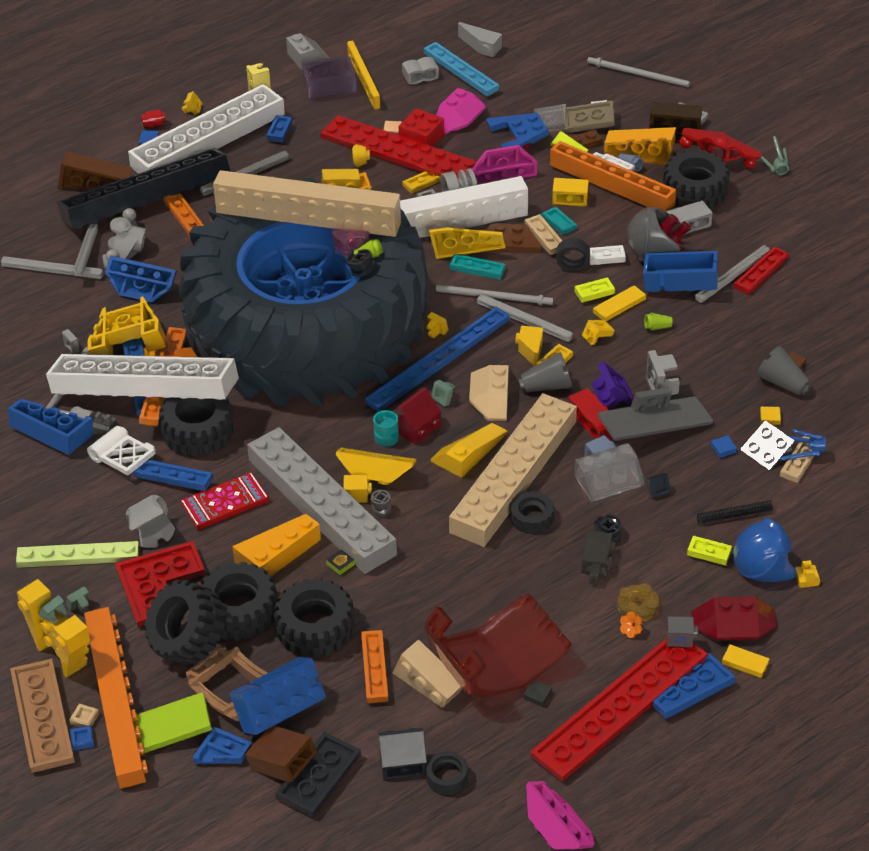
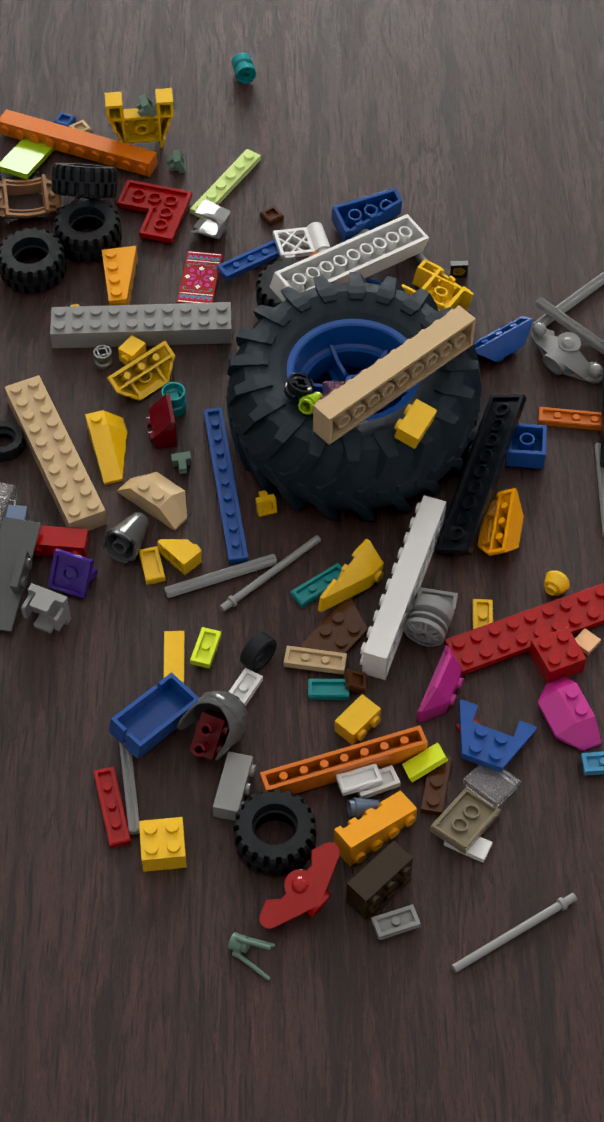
camera: 125 degrees right, 10 degrees up
(41, 715) = (83, 104): medium nougat plate -> none
(96, 499) = (271, 215): none -> reddish brown tile
(540, 208) = (355, 681): none -> reddish brown tile
(597, 329) = (152, 614): yellow bracket -> none
(656, 321) = (123, 664): lime cone -> none
(760, 226) = (162, 844): none -> yellow brick

